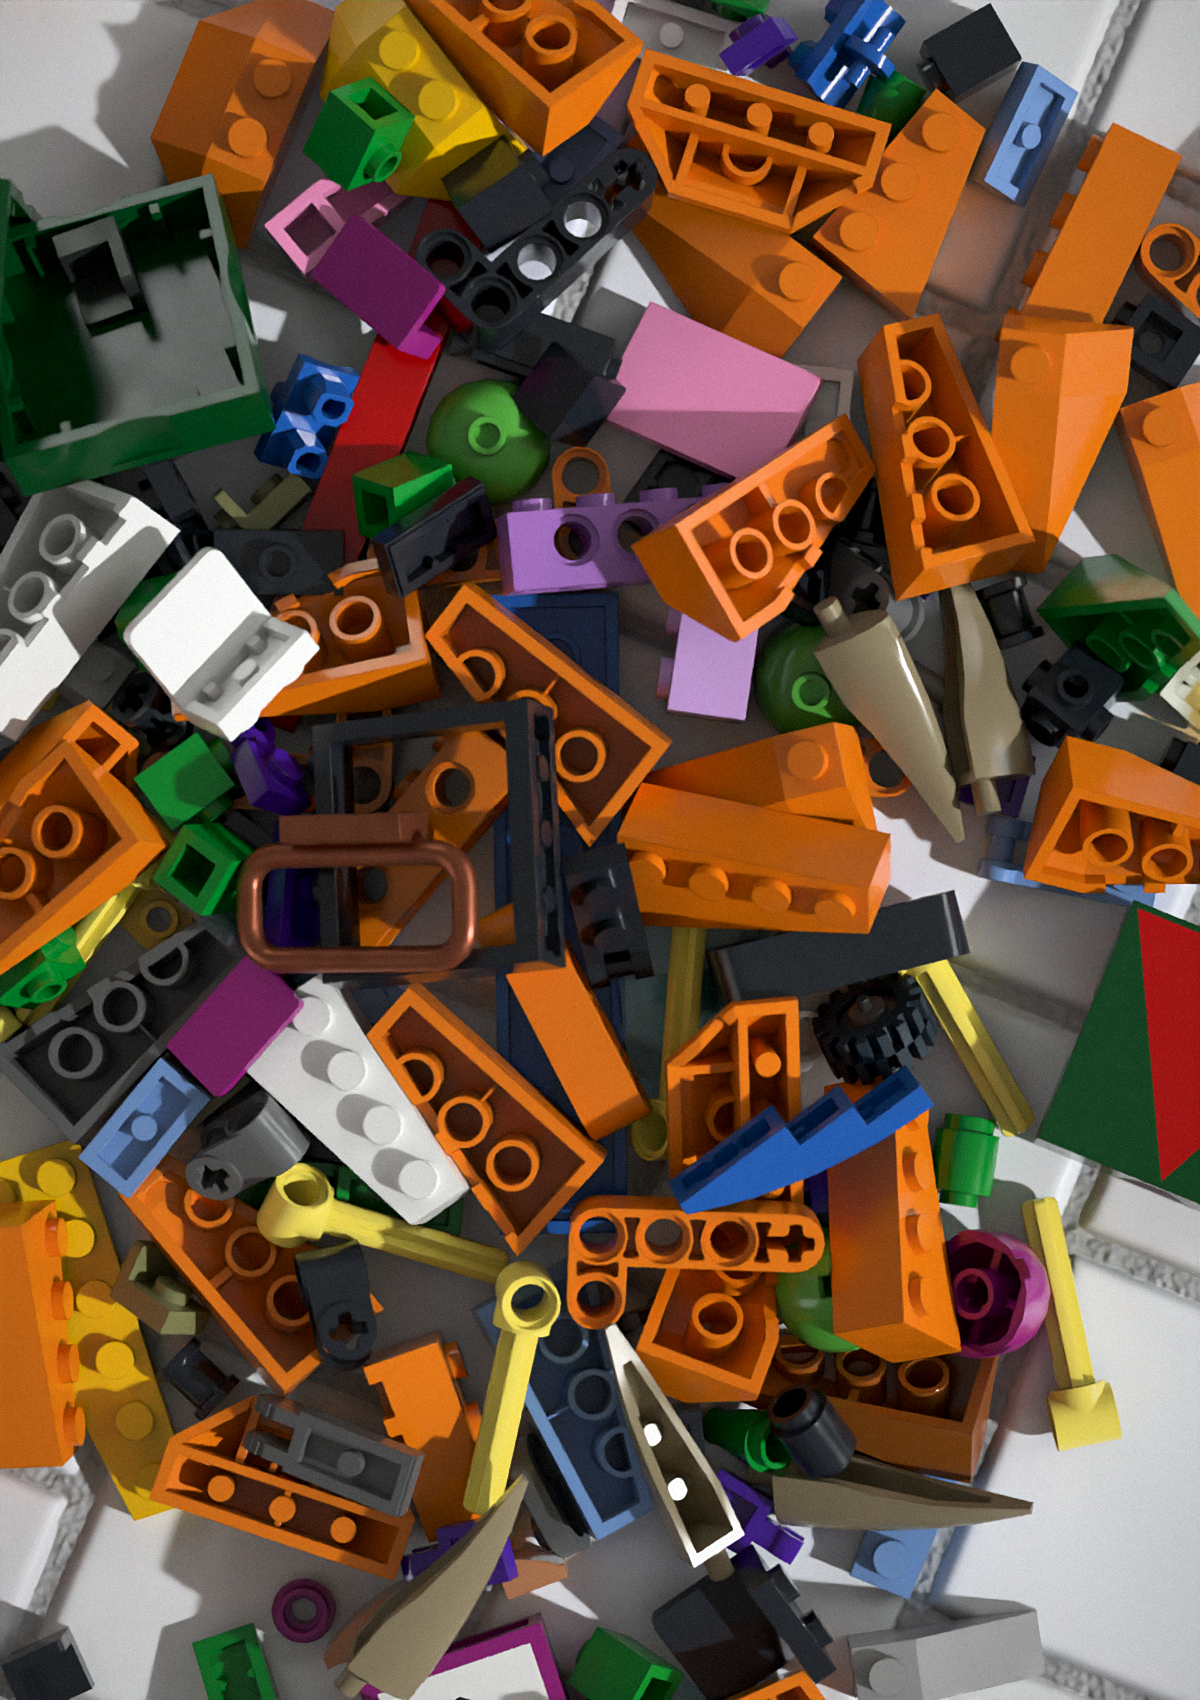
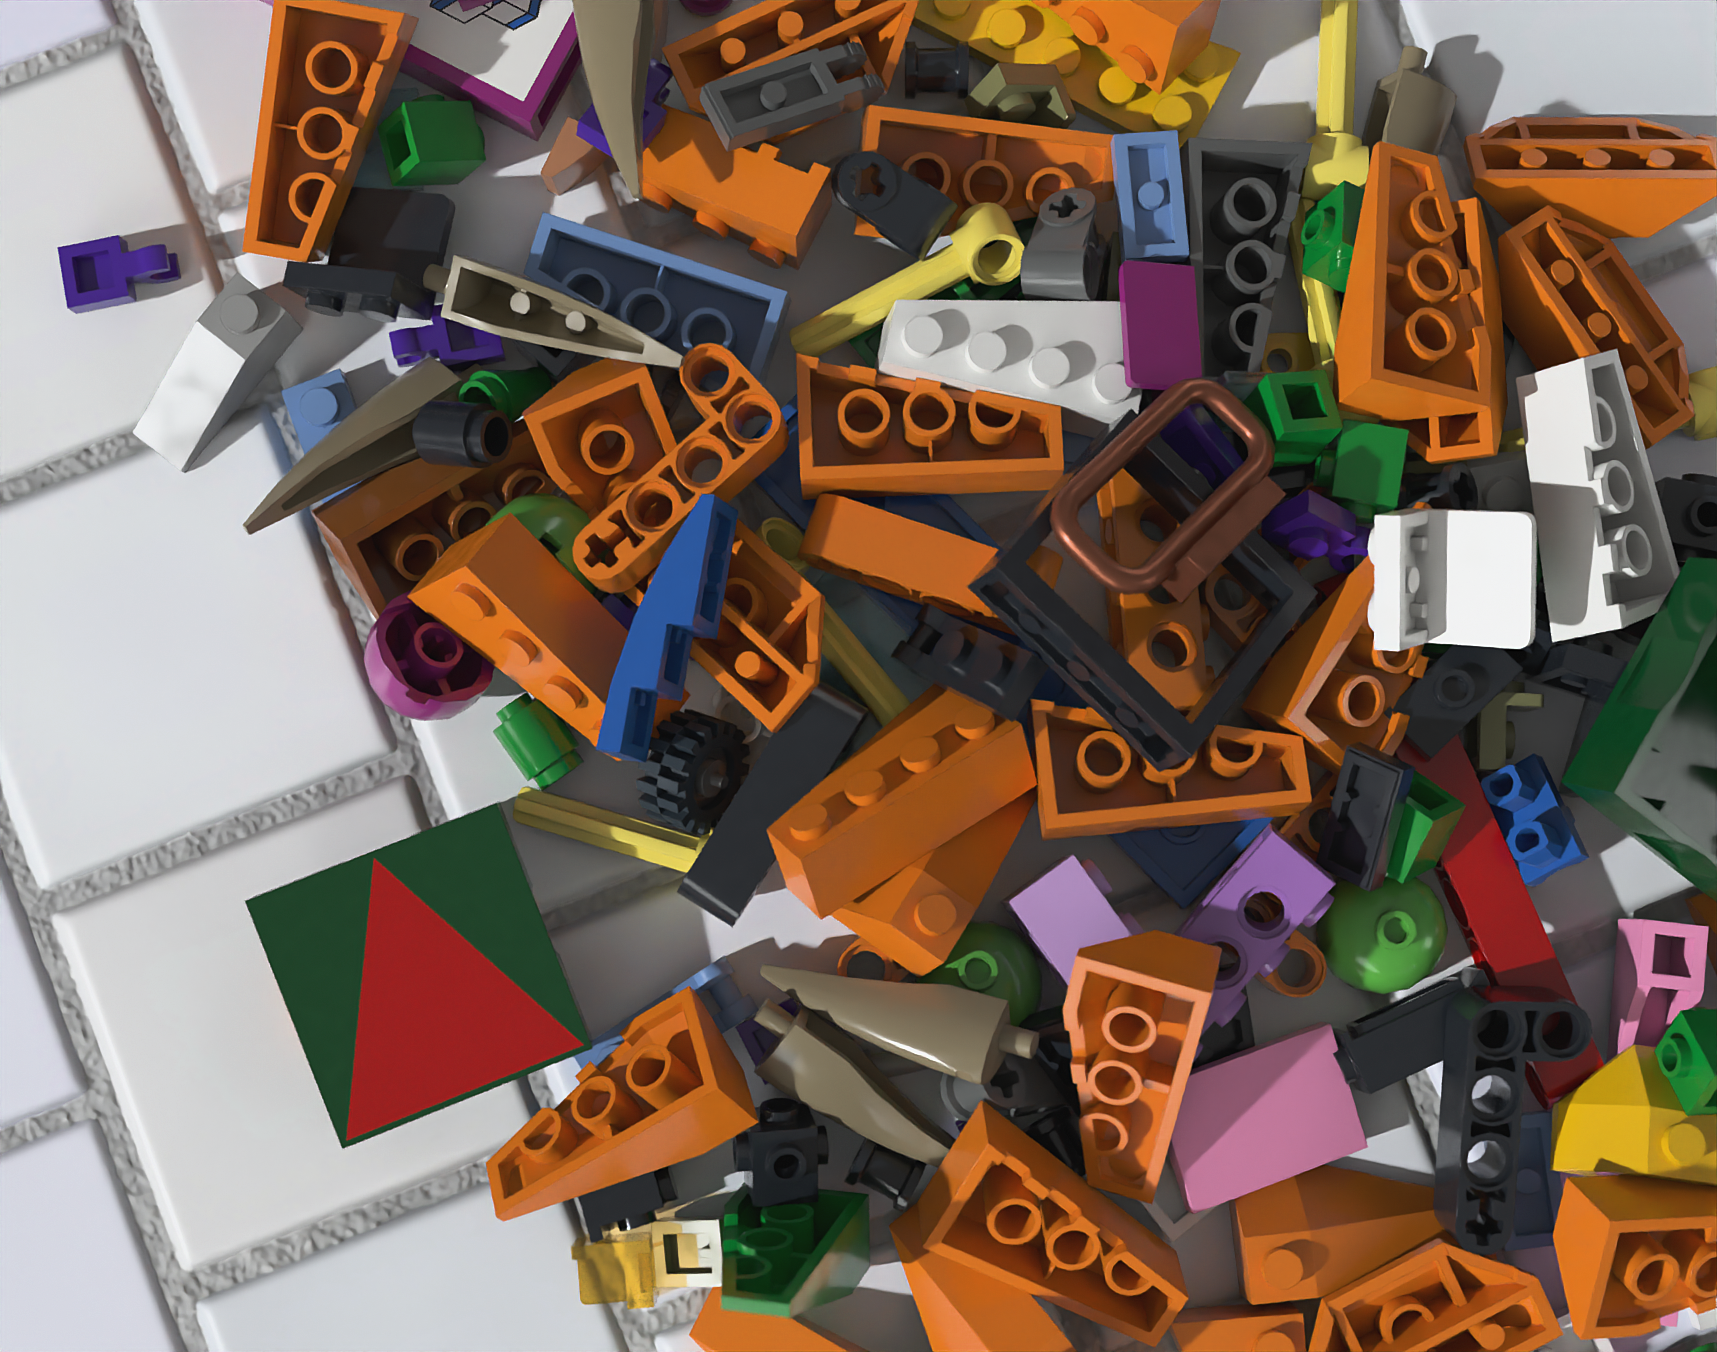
camera: 130 degrees right, 5 degrees down
(381, 286) = (1583, 964): magenta panel -> none
(499, 192) = (1567, 1119): black brick -> none
(508, 1380) = (717, 263): light yellow axle -> none
(554, 1516) = (611, 213): dark grey plate -> none
(567, 397) = (1363, 1016): black panel -> none
(1080, 1407) = (287, 646): light yellow axle -> none

